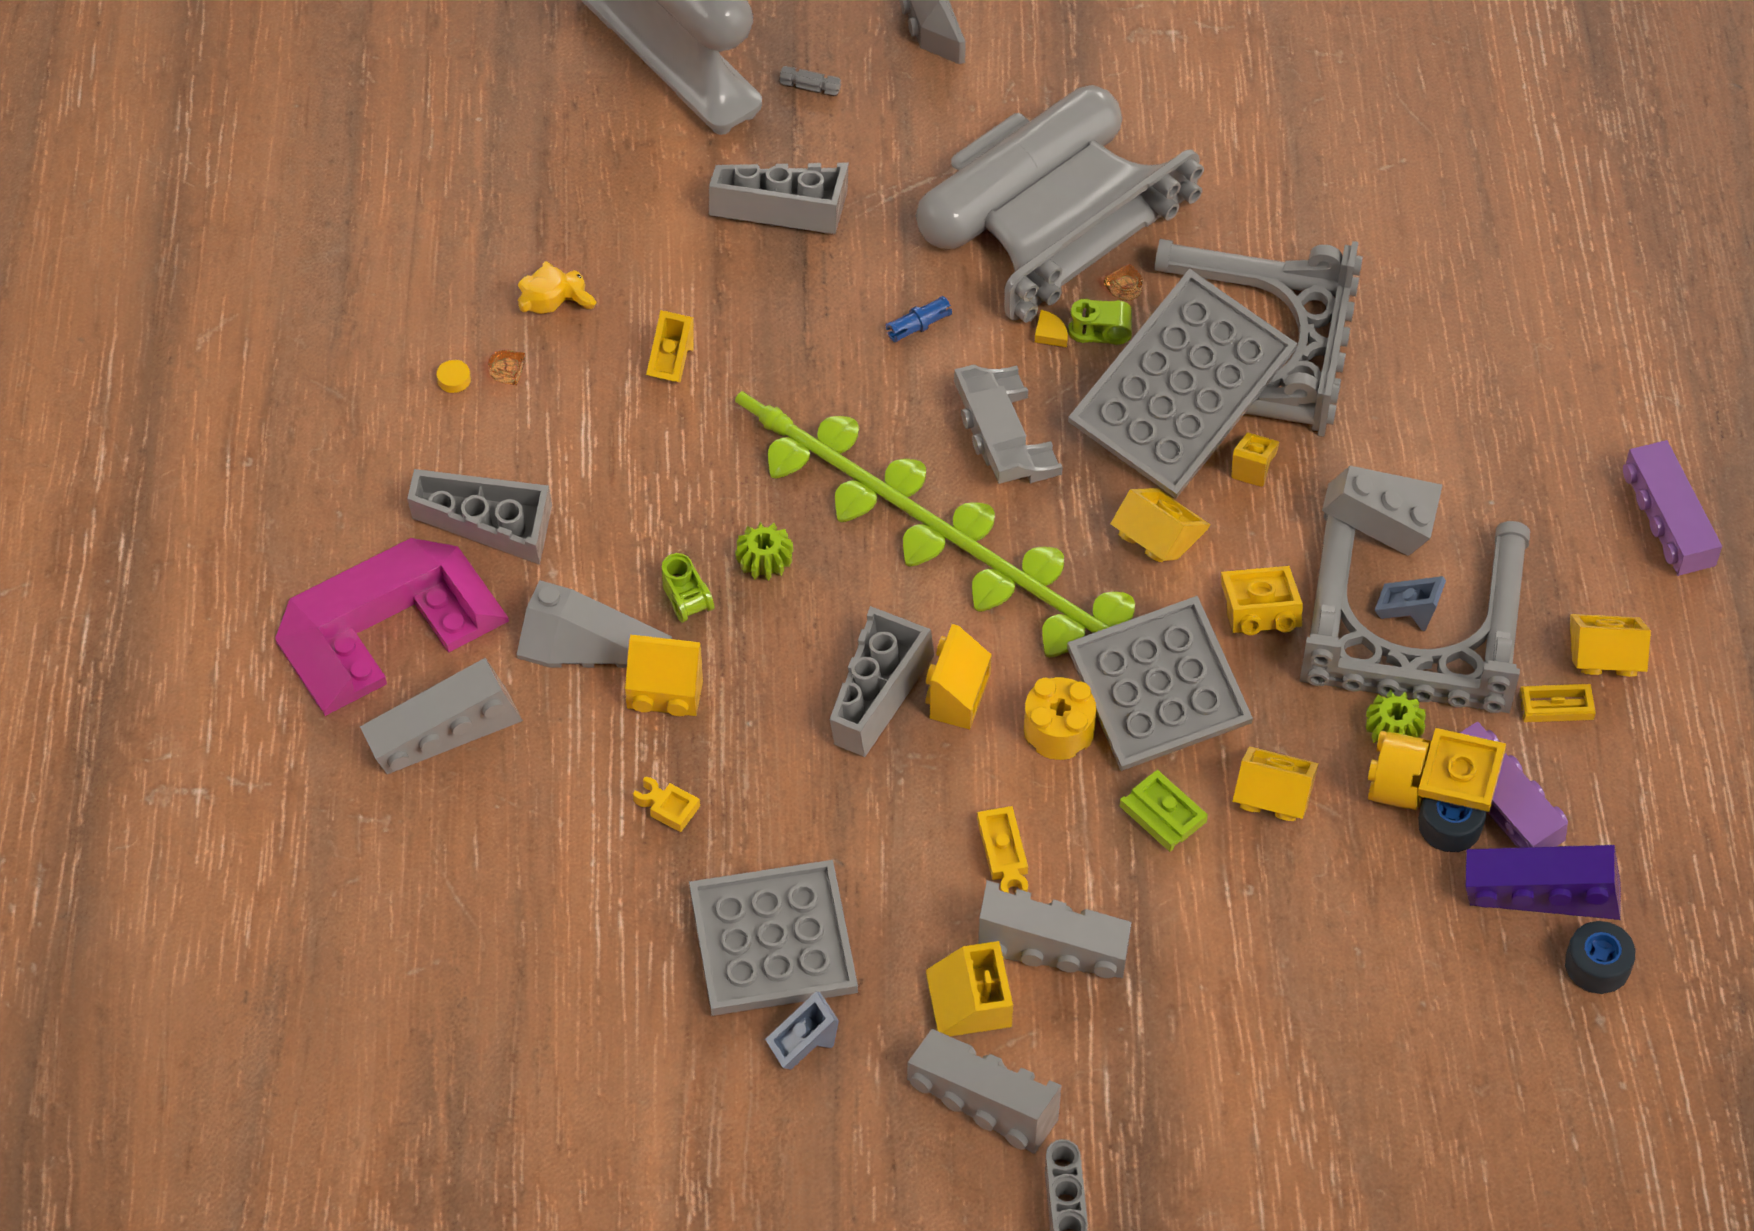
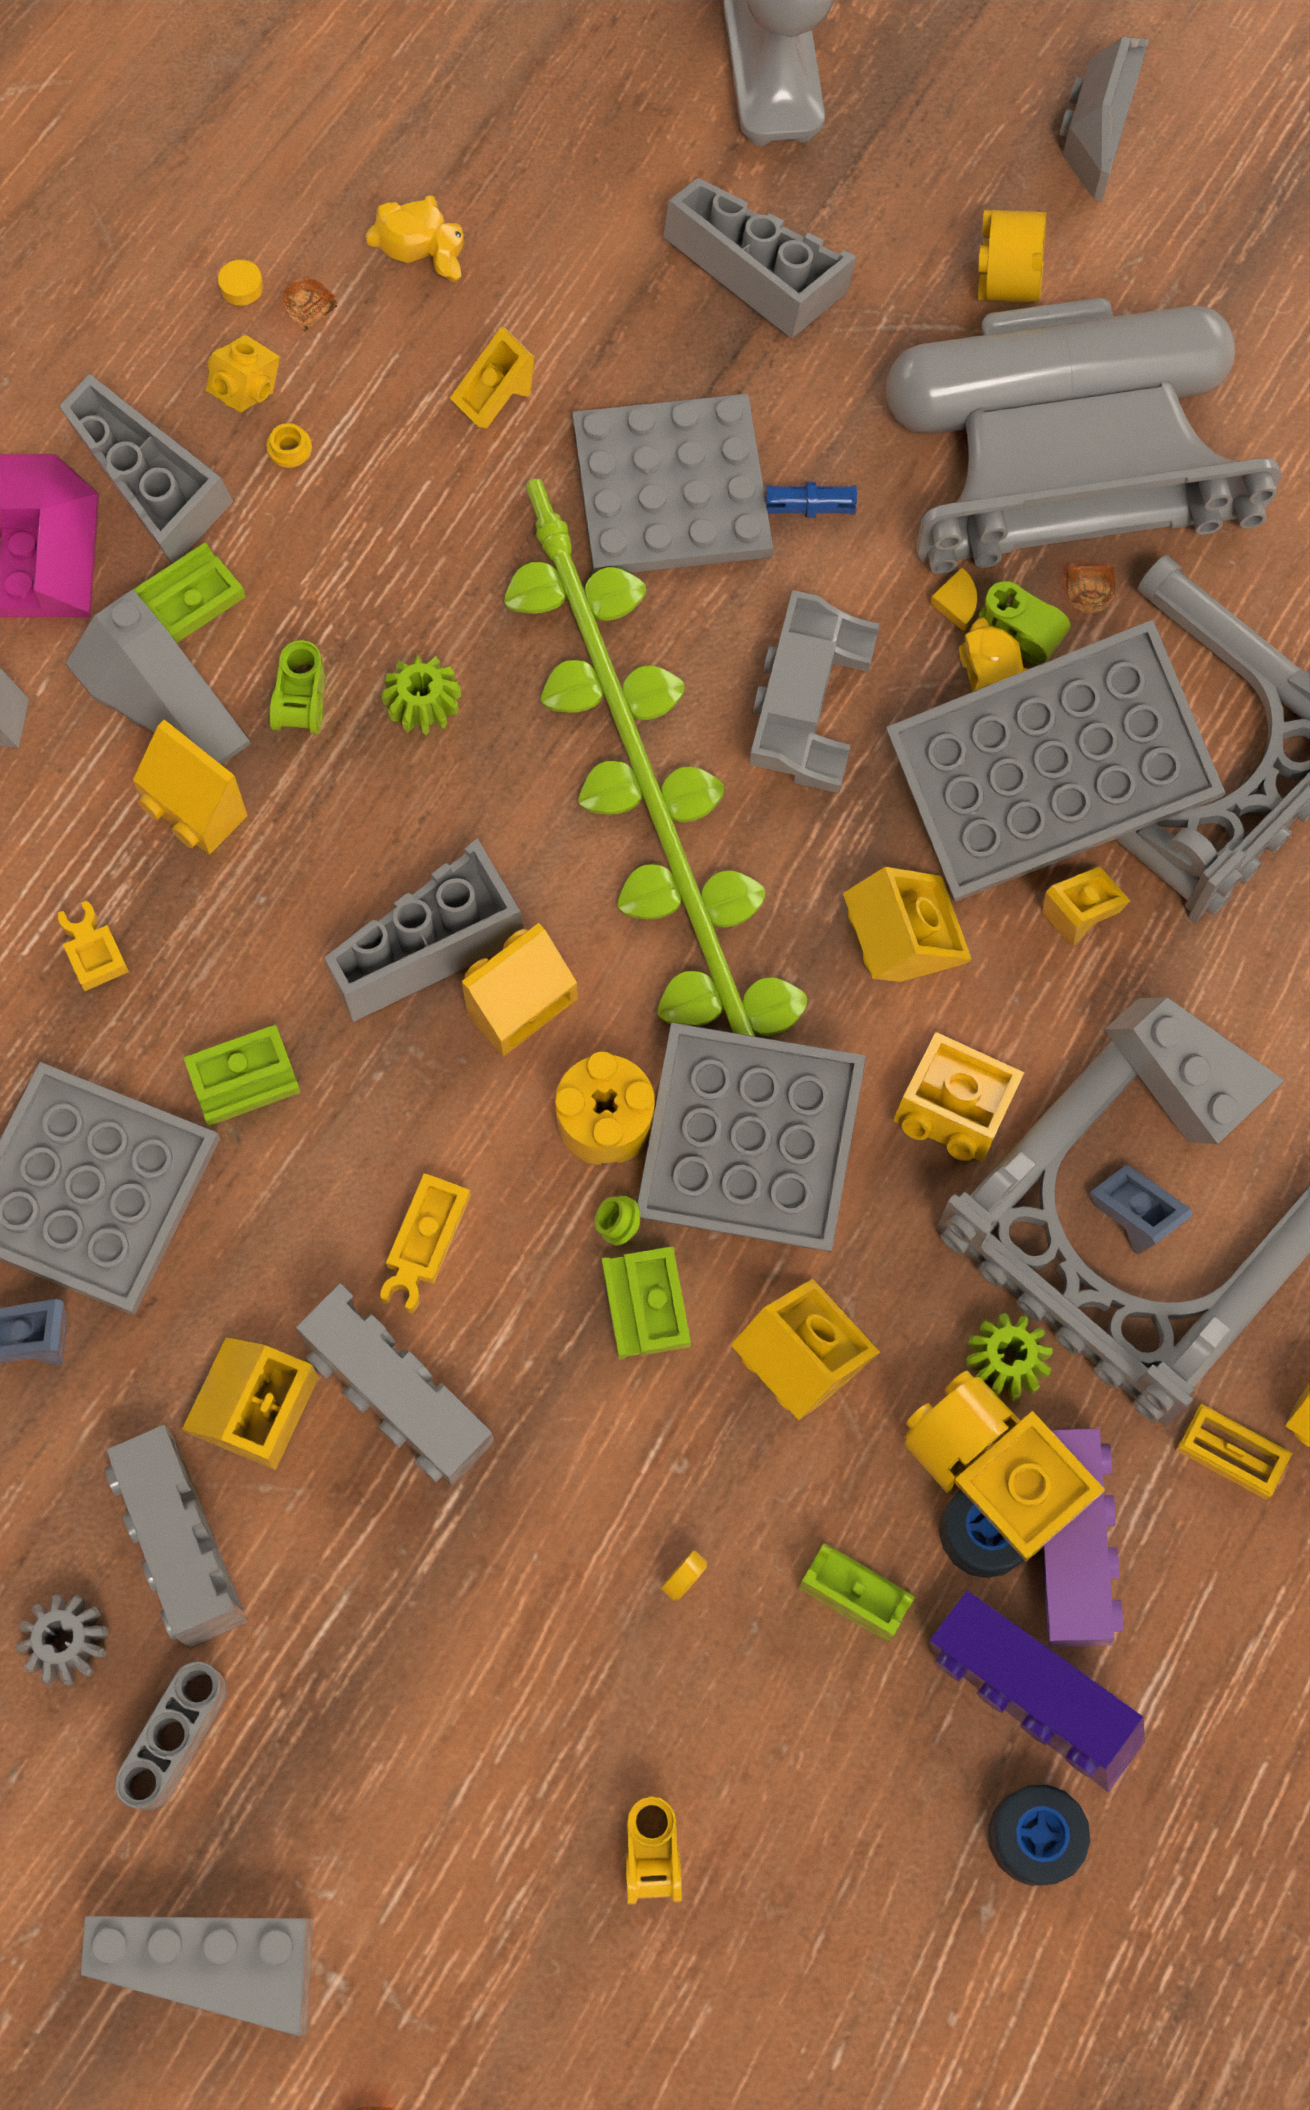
camera: 30 degrees right, 15 degrees up
(504, 425) = (242, 373): none -> yellow brick
(562, 447) = (289, 435): none -> yellow plate
(570, 565) = (191, 592): none -> lime plate
(810, 80) = (900, 129): light grey axle -> none
(820, 822) = (241, 1075): none -> lime plate
(824, 354) = (672, 484): none -> light grey plate
(941, 117) = (1012, 256): none -> yellow brick
(958, 1197) = (53, 1660): none -> light grey gear
(1096, 350) = (989, 655): none -> yellow animal
(1106, 771) = (618, 1219): none -> lime plate
(1299, 940) = (684, 1576): none -> yellow tile
(1396, 1098) = (653, 1857): none -> yellow piece
(1403, 896) = (856, 1592): none -> lime hinge

